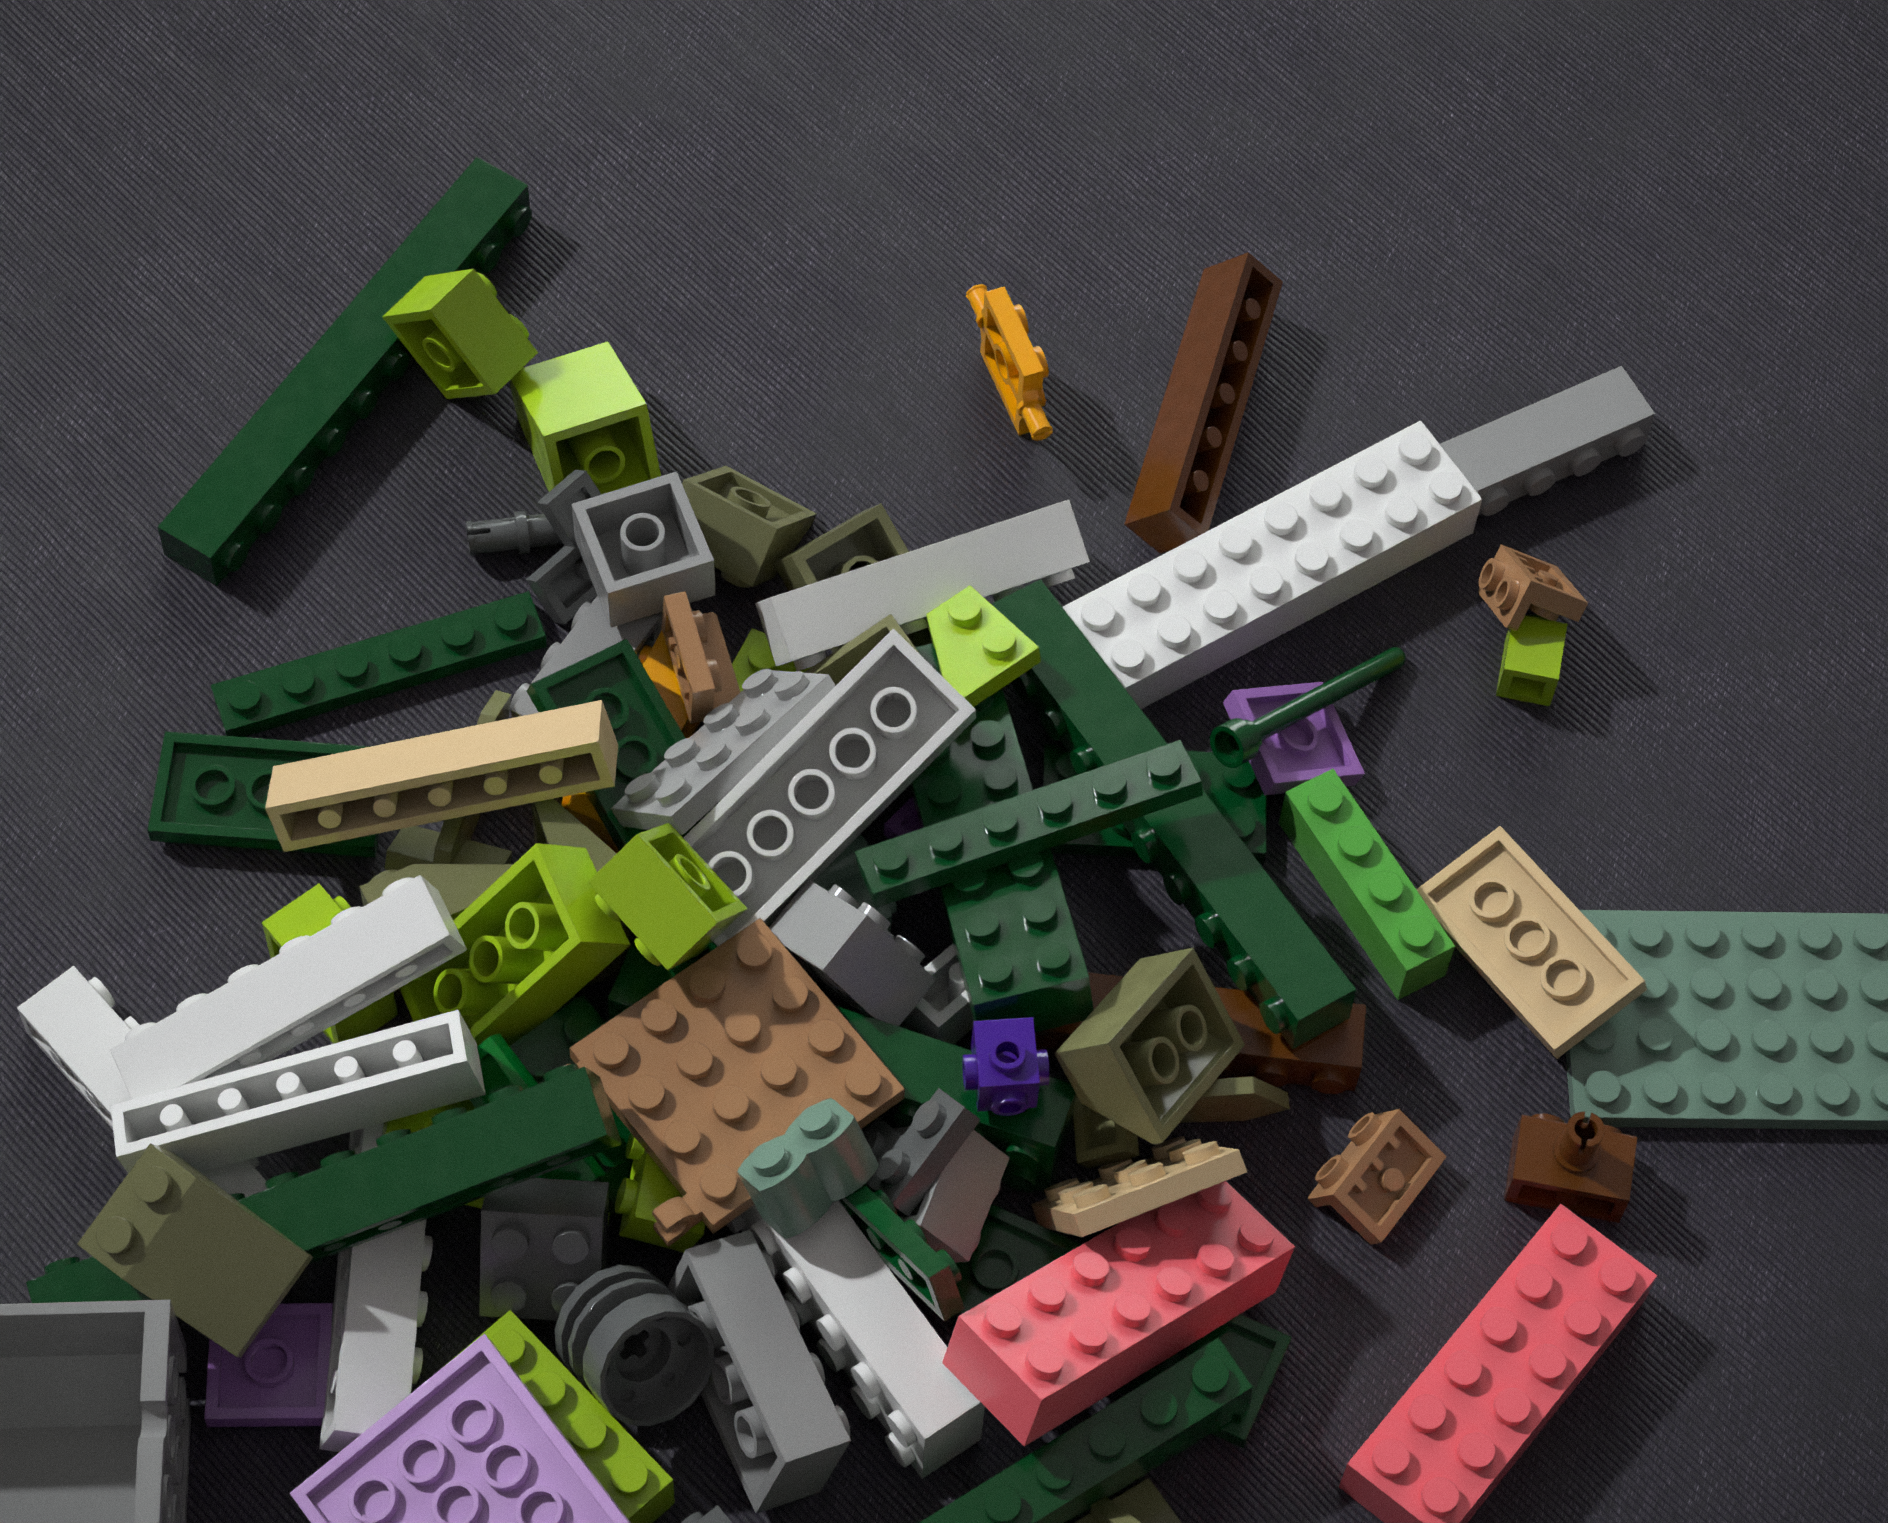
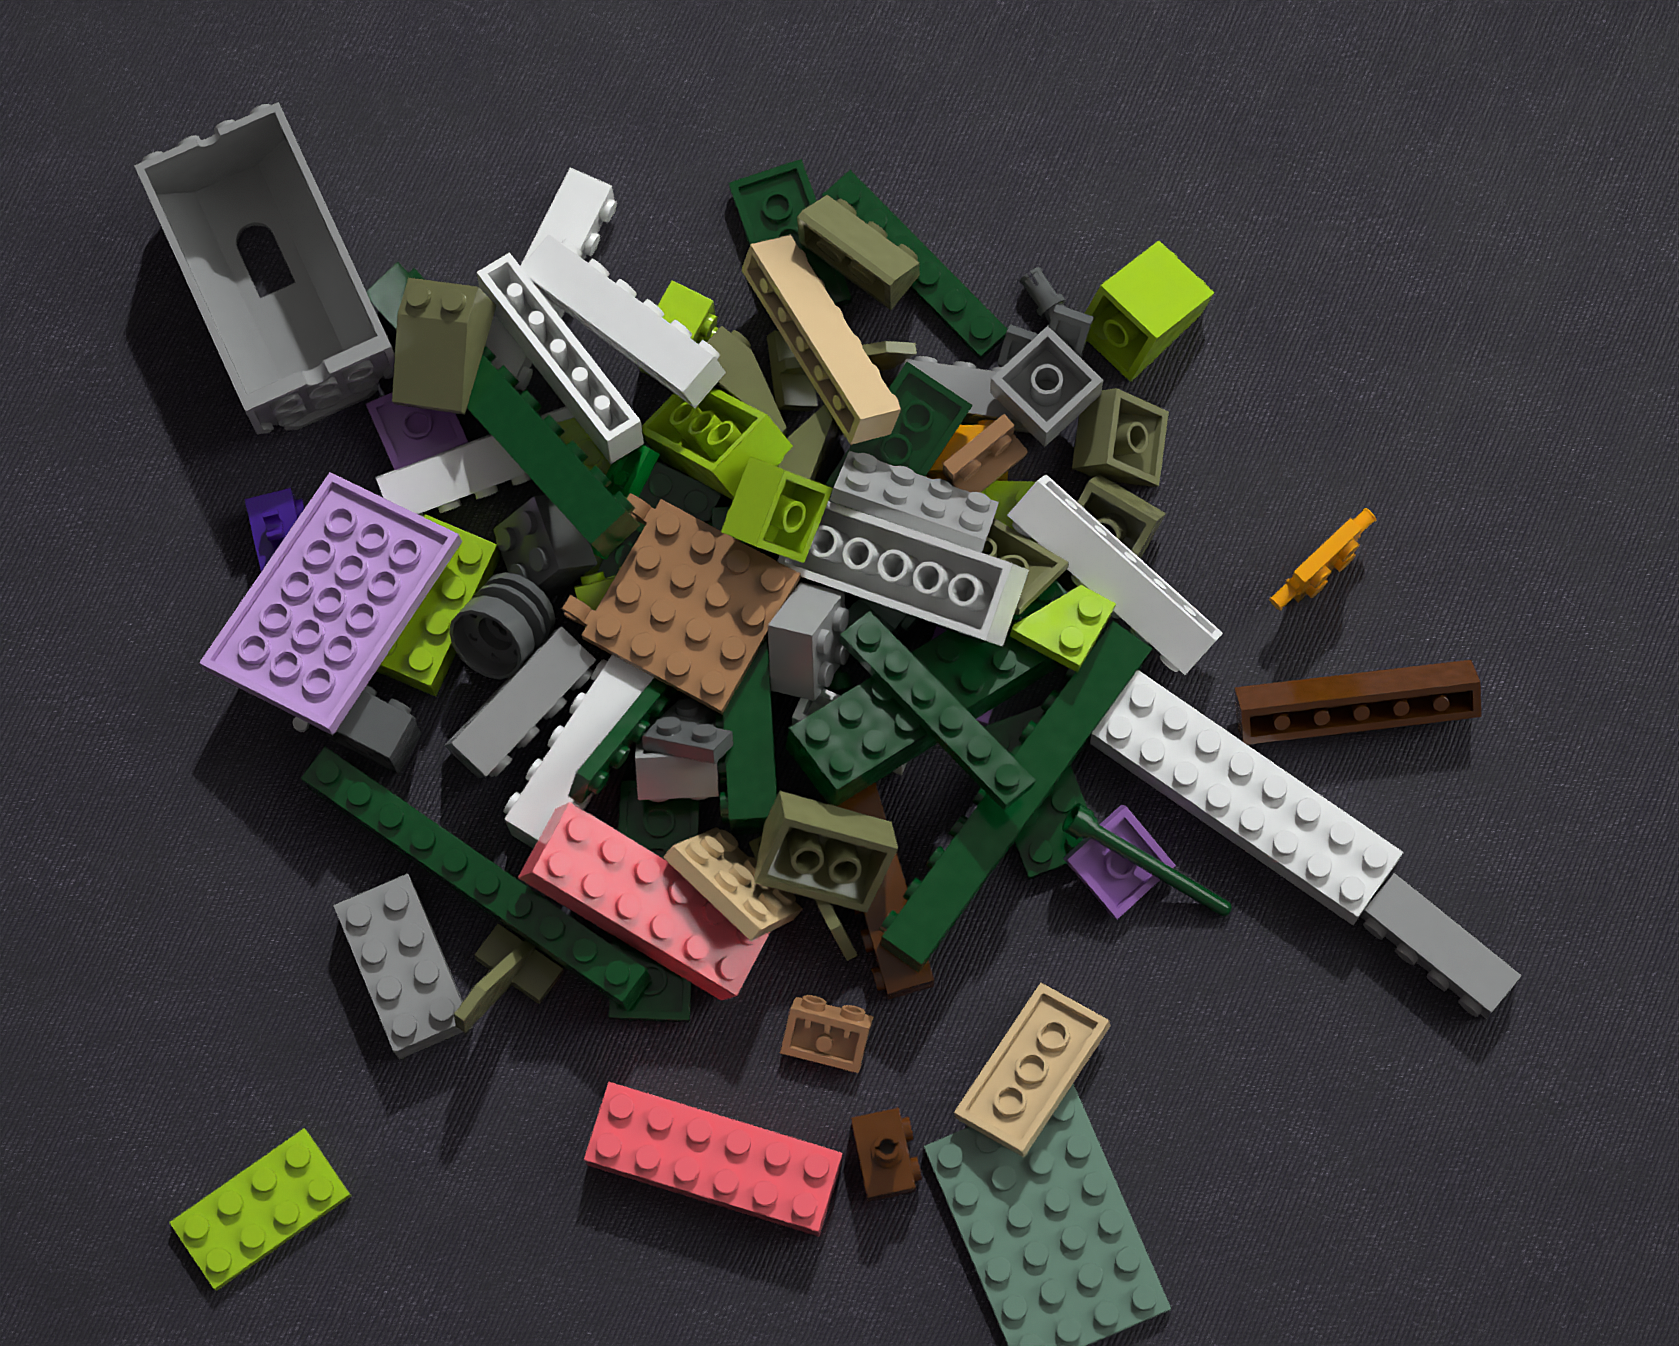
camera: 75 degrees right, 15 degrees up
(336, 380) = (1124, 140): dark green brick -> none
(340, 700) = (858, 249): none -> olive slope
(461, 333) = (1166, 197): lime brick -> none
(808, 1168) = (635, 674): sand green brick -> none
(1005, 1066) = (760, 751): dark purple brick -> none
(1366, 884) = (1031, 949): bright green brick -> none
(1519, 582) = (1307, 976): medium nougat bracket -> none
(1532, 660) = (1259, 998): lime brick -> none

